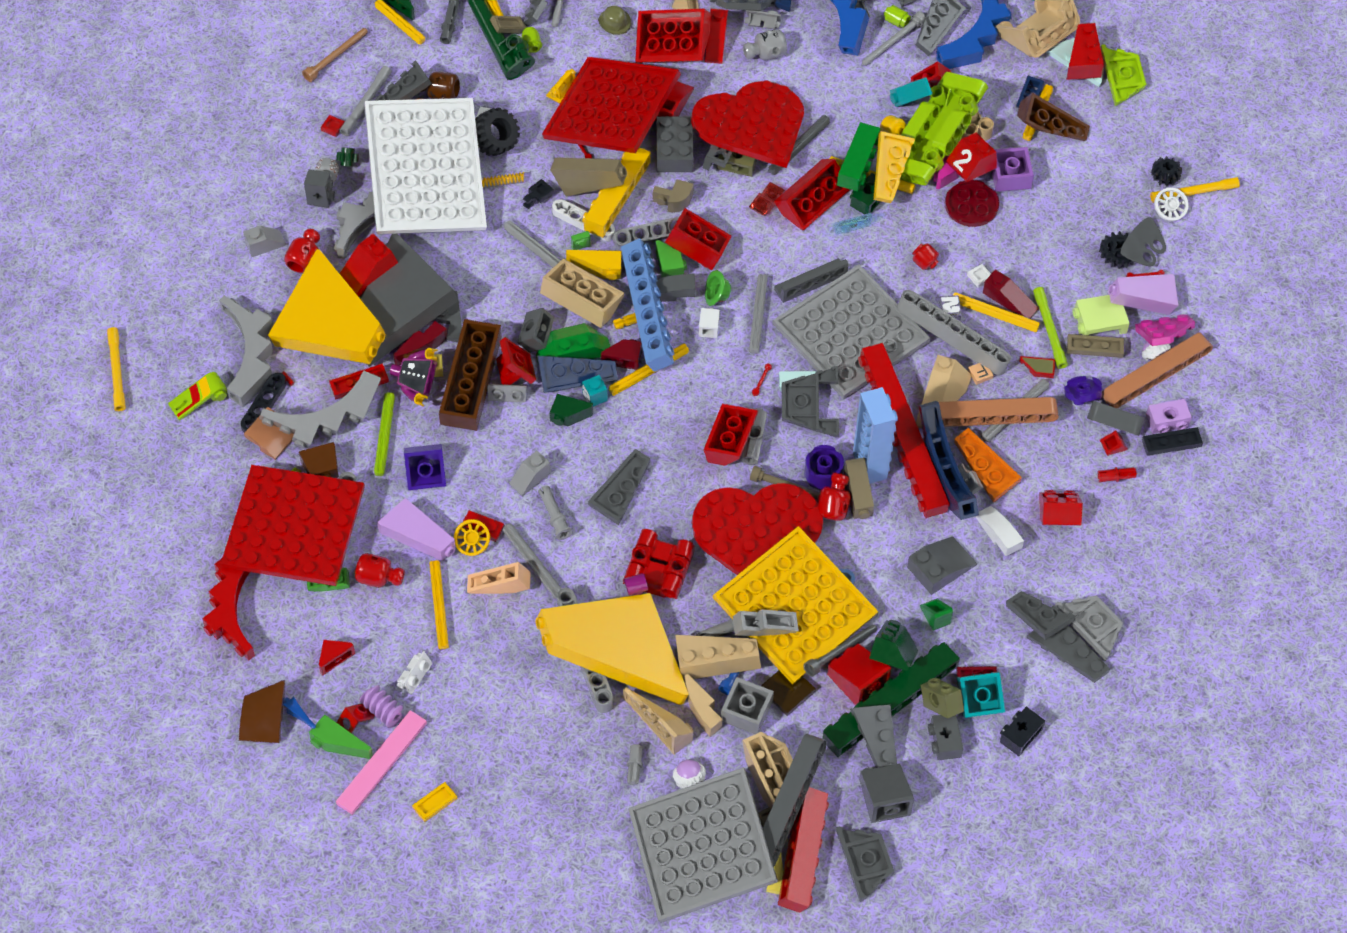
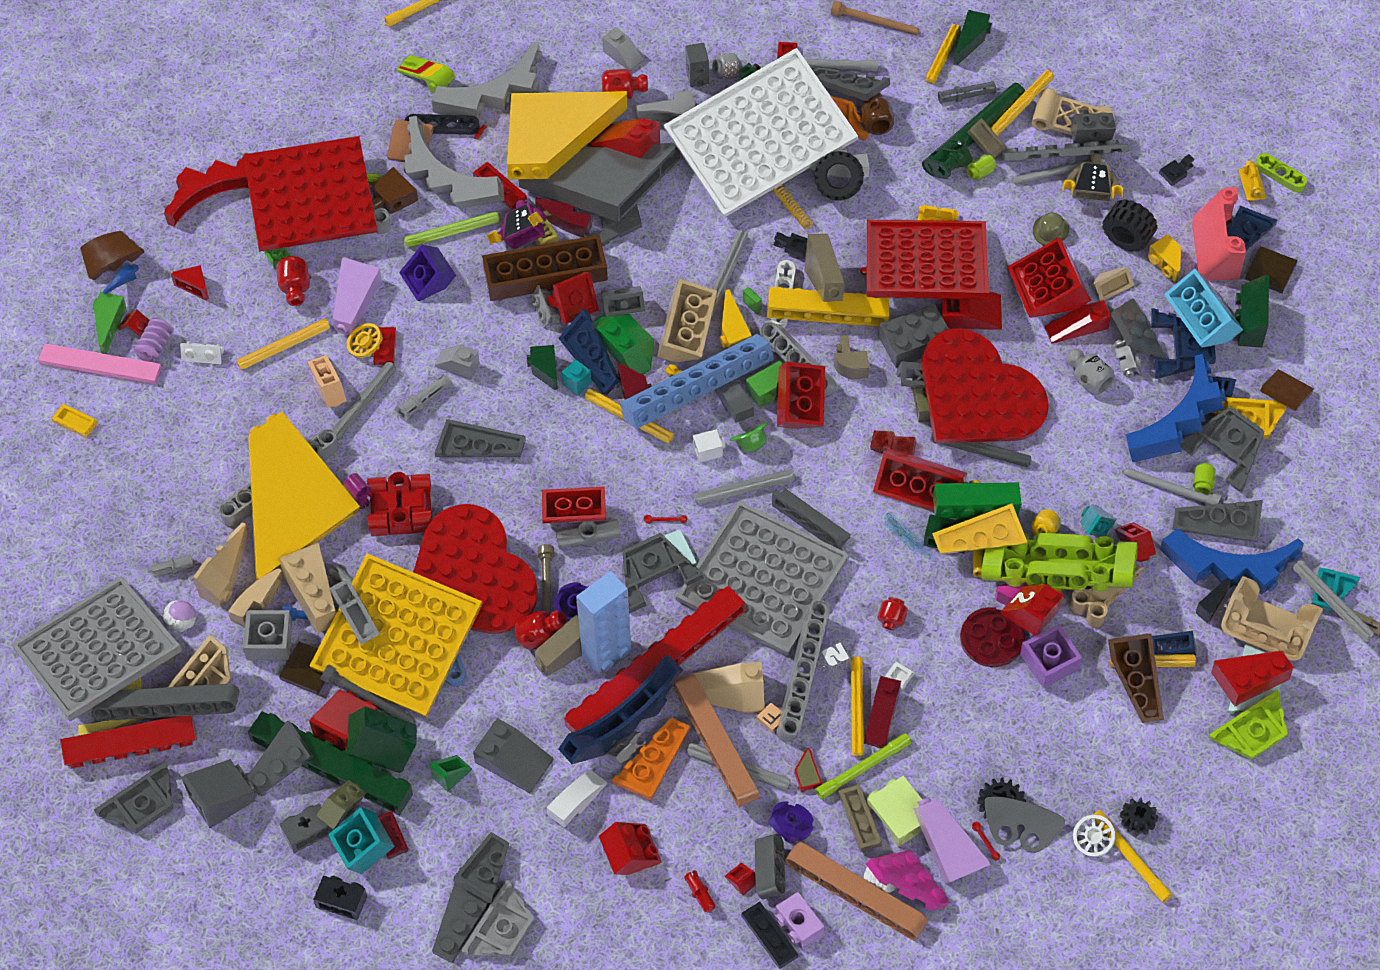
camera: 70 degrees right, 0 degrees up
(1006, 55) = (1209, 604): none -> black slope

